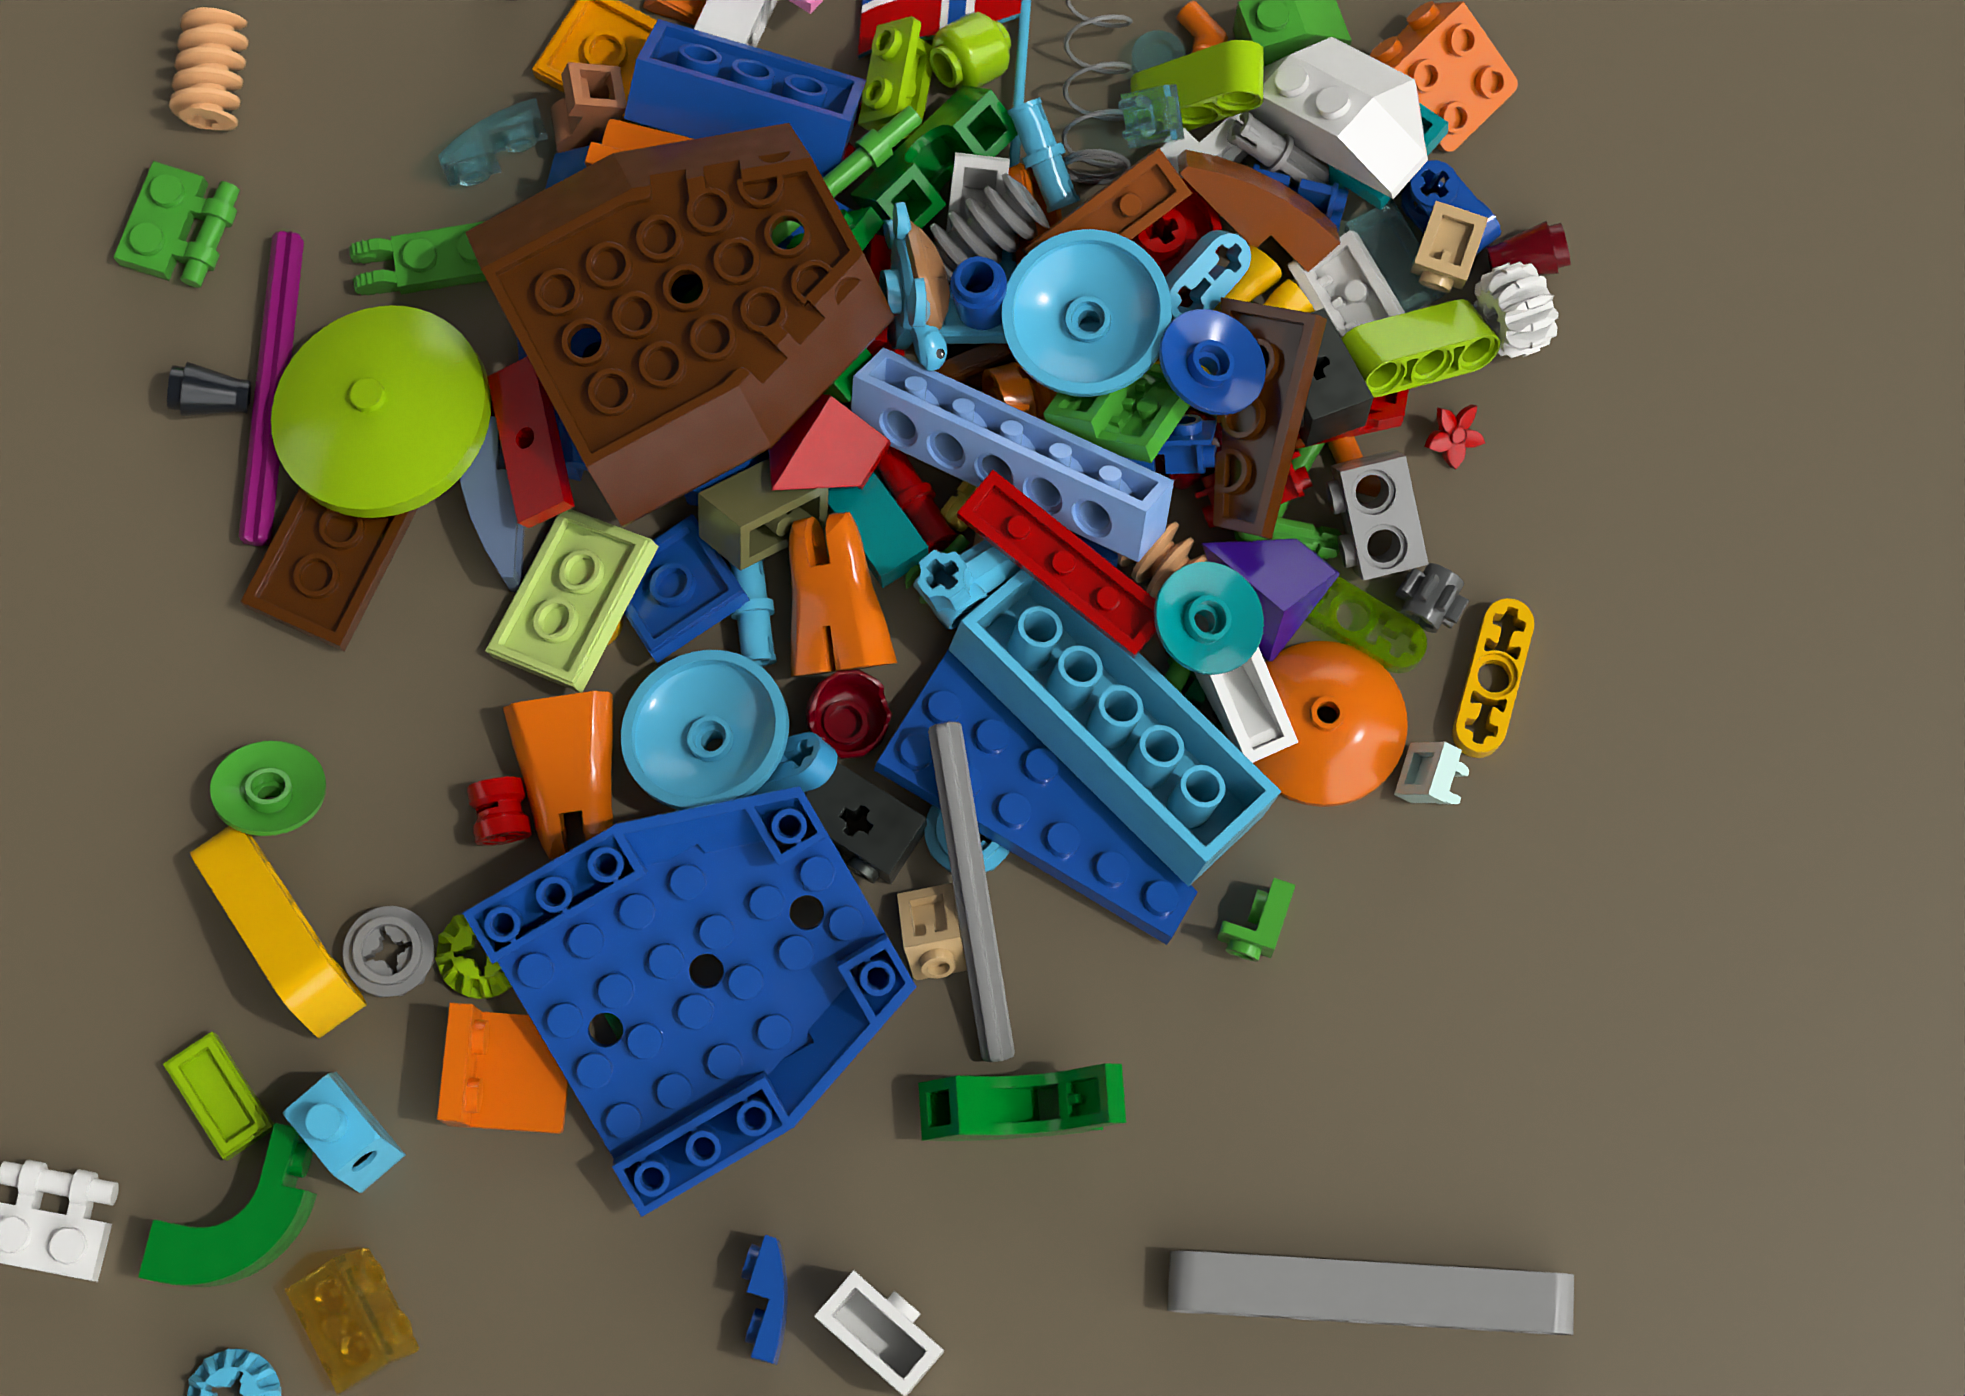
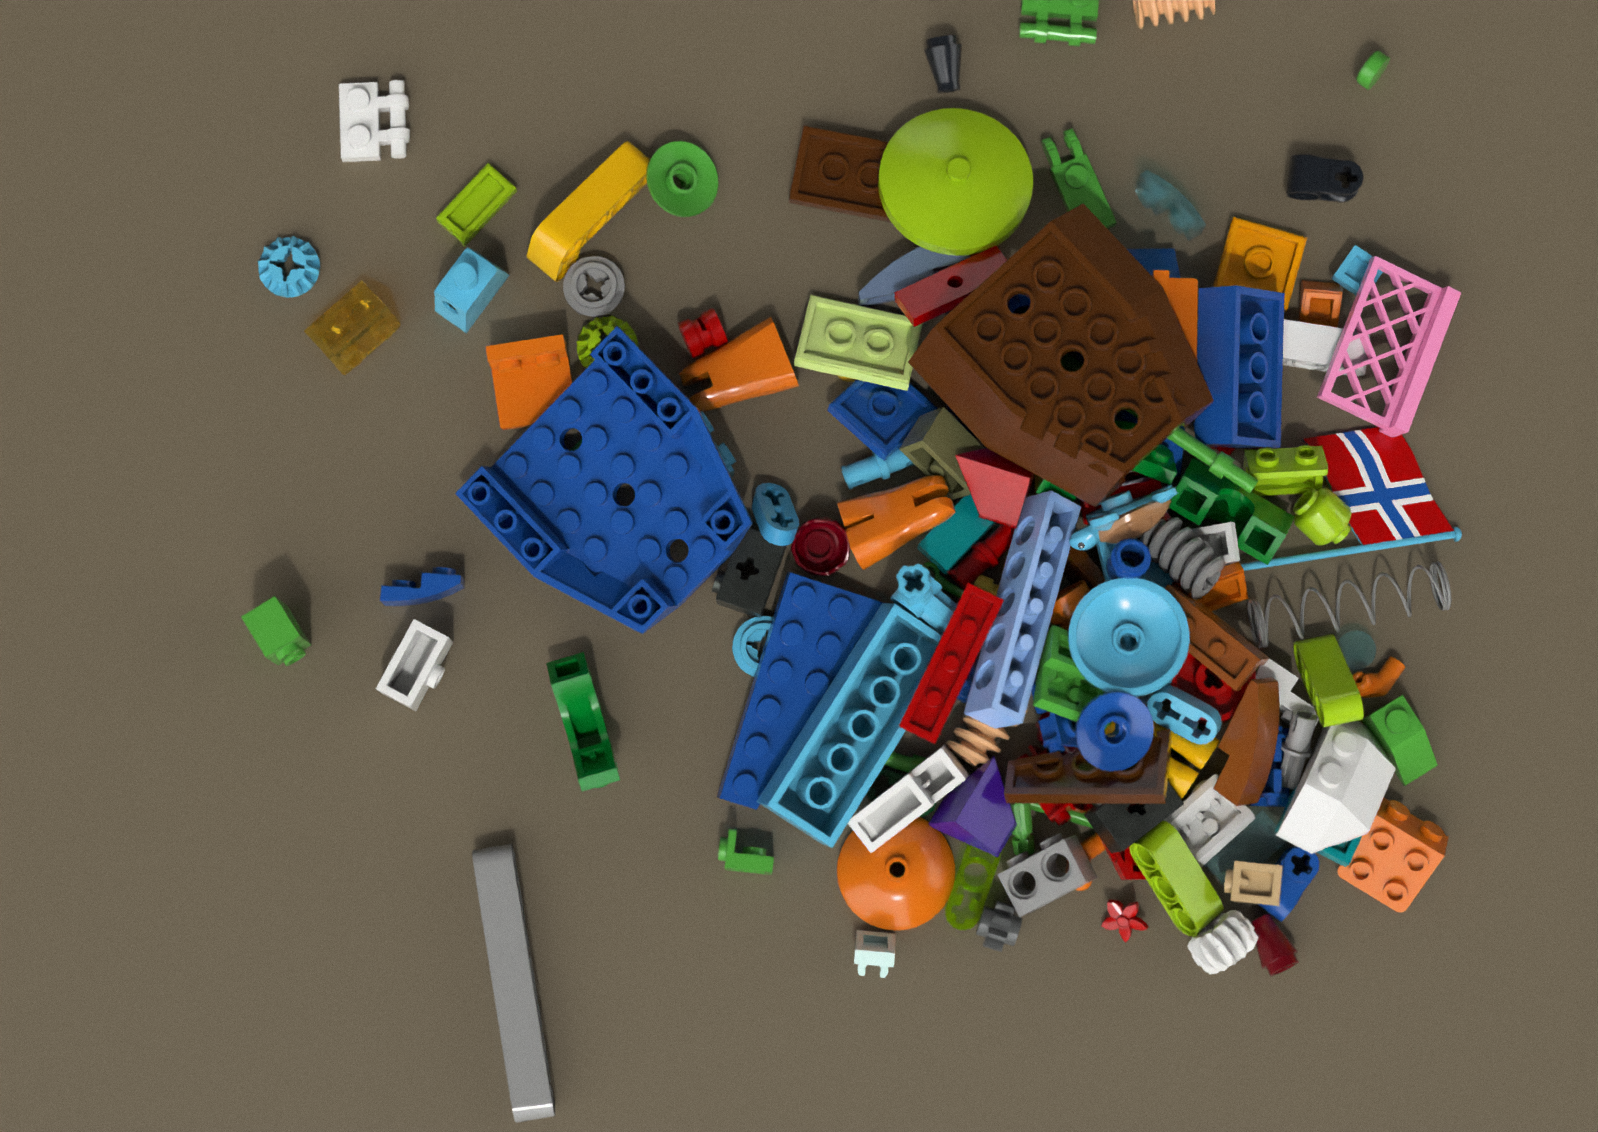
camera: 75 degrees right, 5 degrees up
(249, 1239) = (370, 220): green arch -> none
(273, 358) = (975, 100): magenta axle -> none
(586, 105) = (1207, 261): nougat leg -> none
(686, 708) = (790, 432): medium azure dish -> none
(931, 932) = (688, 637): tan bracket -> none
(971, 891) = (718, 656): light grey axle -> none
(1043, 155) = (1252, 584): medium azure pin -> none
(1152, 116) = (1298, 652): clear light blue tile -> none
(1229, 608) = (937, 789): teal dish -> none
(1489, 636) = (985, 973): yellow beam -> none

